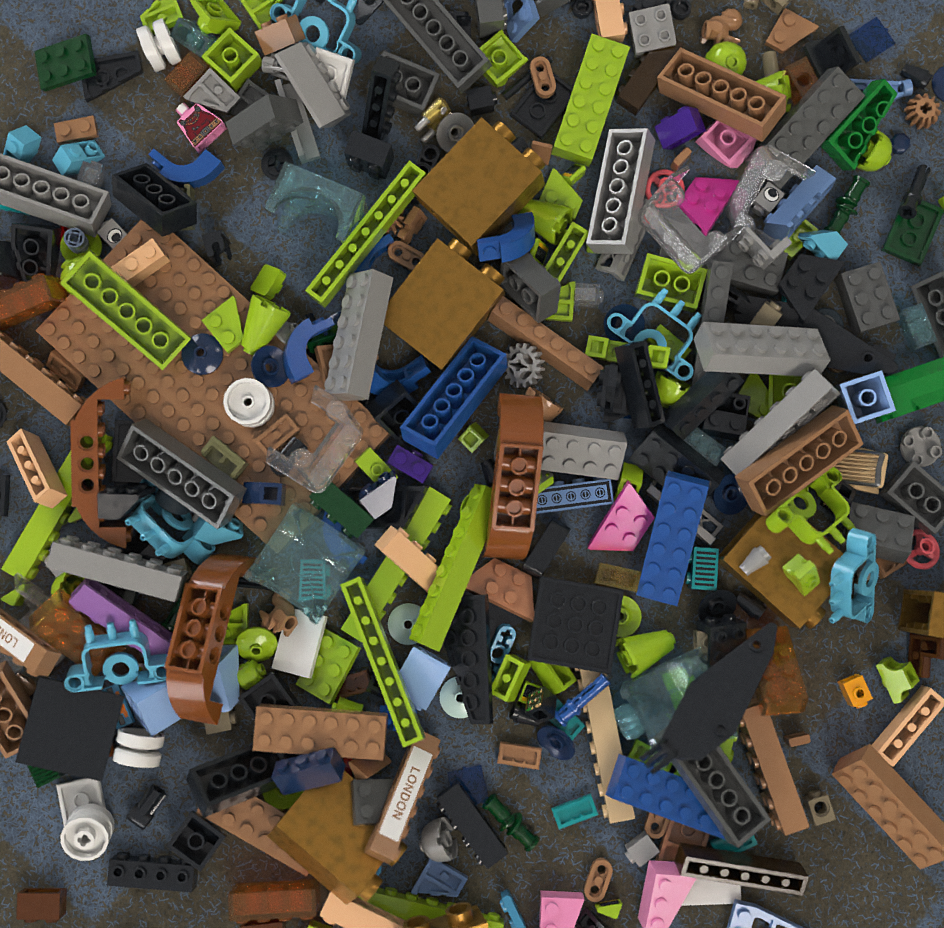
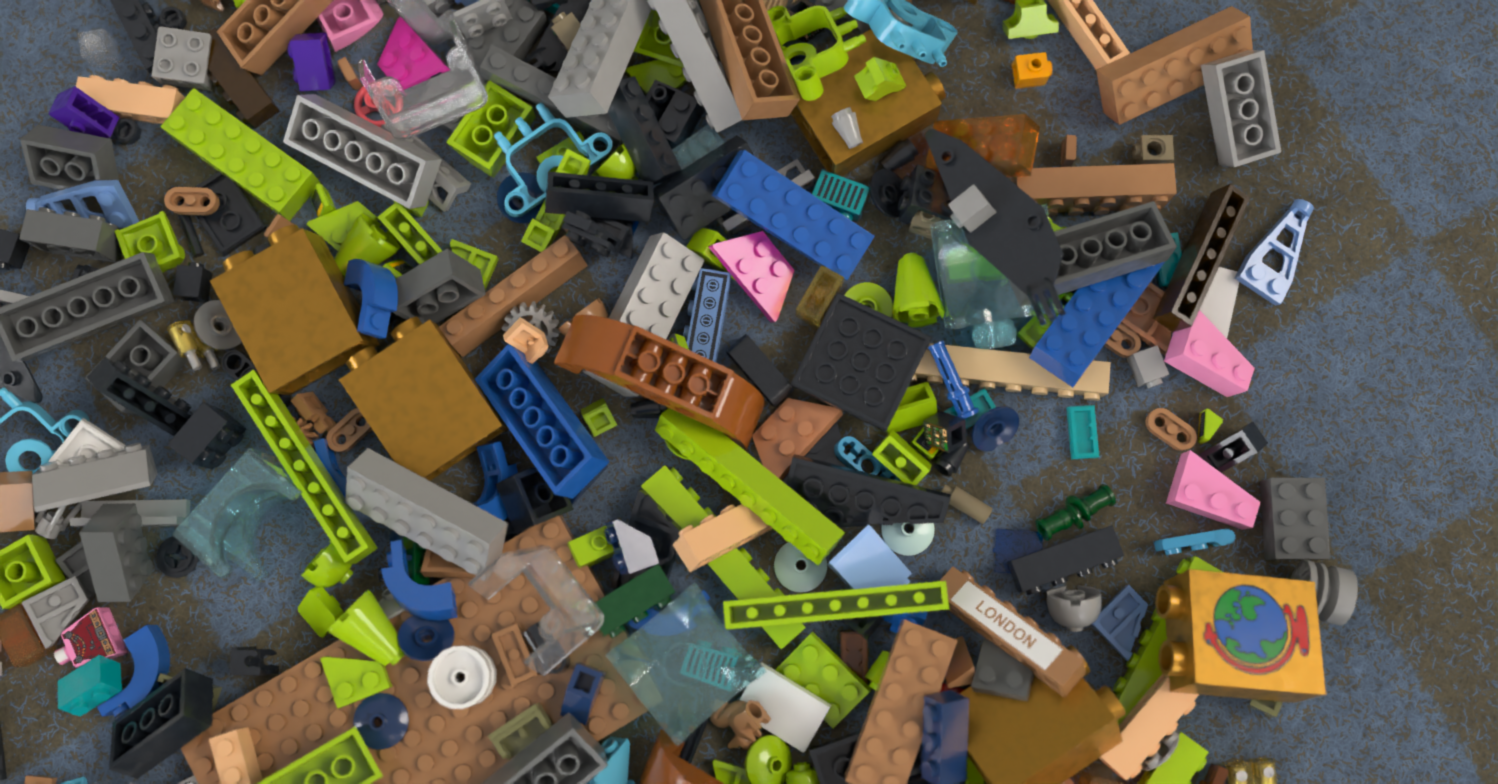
camera: 70 degrees left, 5 degrees down
(166, 137) = (89, 685): none -> teal brick
(299, 275) = (327, 568): none -> lime cylinder
(410, 464) = (606, 502): dark purple brick -> none
(492, 737) = (968, 504): none -> dark tan cylinder
(513, 366) = (527, 339): none -> light nougat bracket
(519, 755) = (998, 478): medium nougat plate -> none
(588, 295) = (473, 229): clear brick -> none
(717, 677) = (971, 209): none -> light grey brick
(730, 503) = (767, 131): dark blue dish -> none
(875, 869) = (1241, 108): none -> light grey brick

